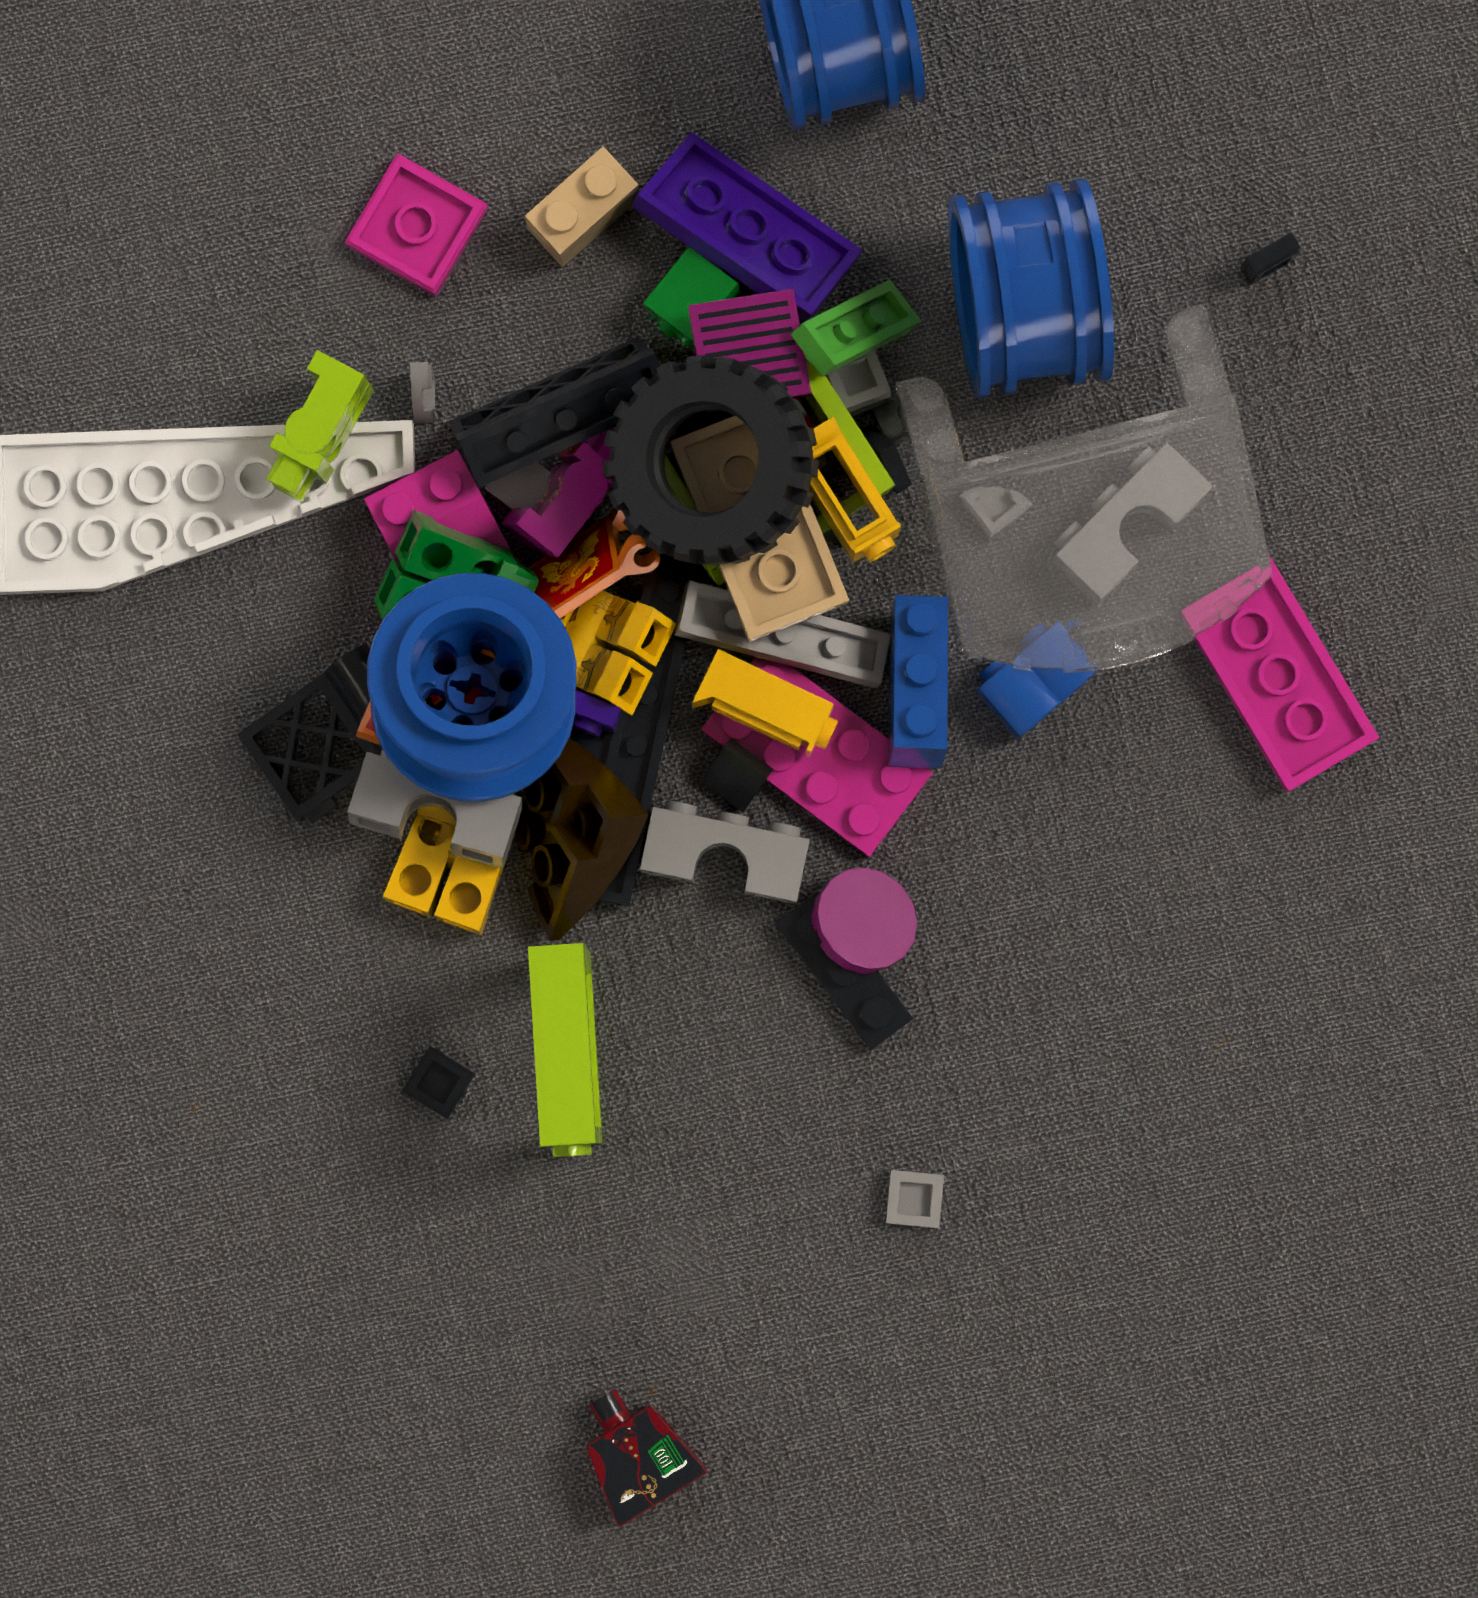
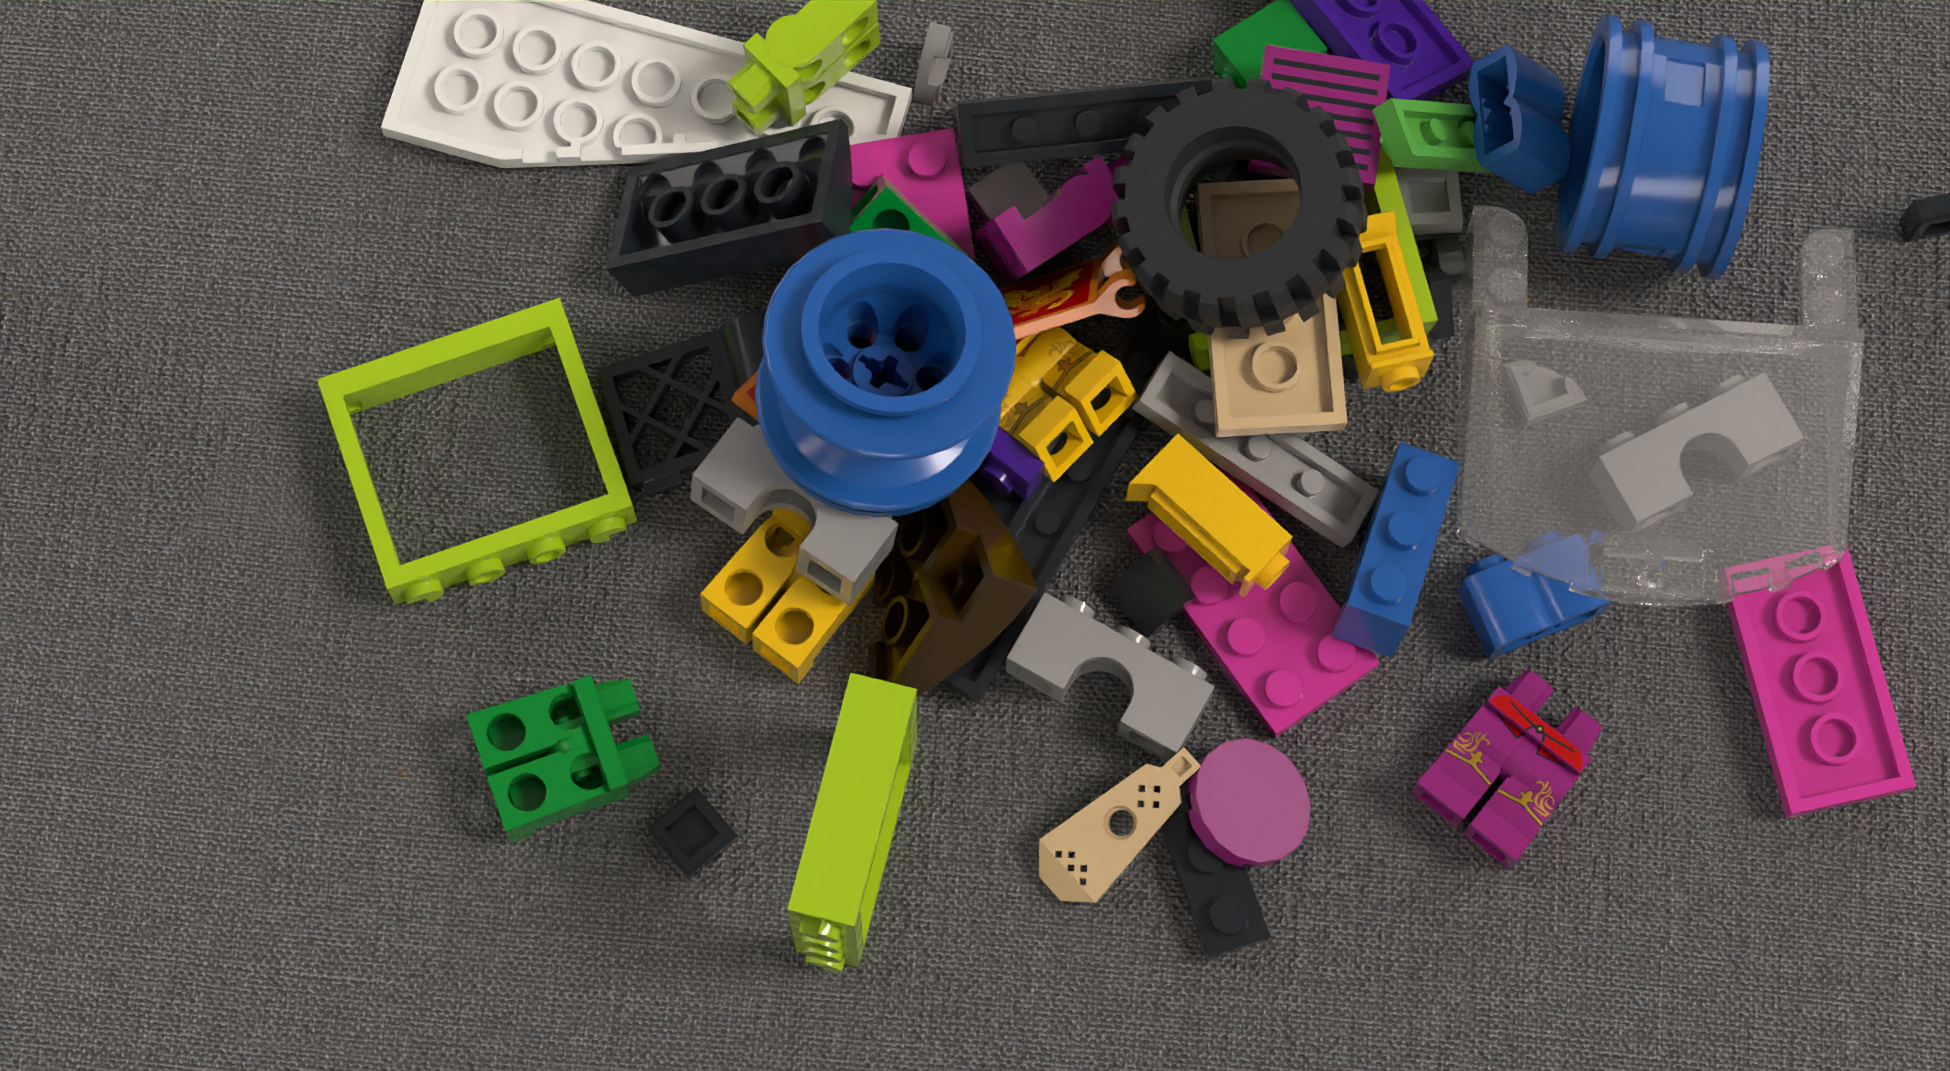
camera: 15 degrees right, 10 degrees down
(110, 770) = (445, 361): none -> lime window
(304, 574) = (732, 208): none -> black slope
(322, 1039) = (557, 754): none -> green hips
(758, 991) = (1094, 842): none -> tan piece
(910, 290) = (1519, 119): none -> blue brick
(1066, 810) = (1522, 751): none -> magenta hips

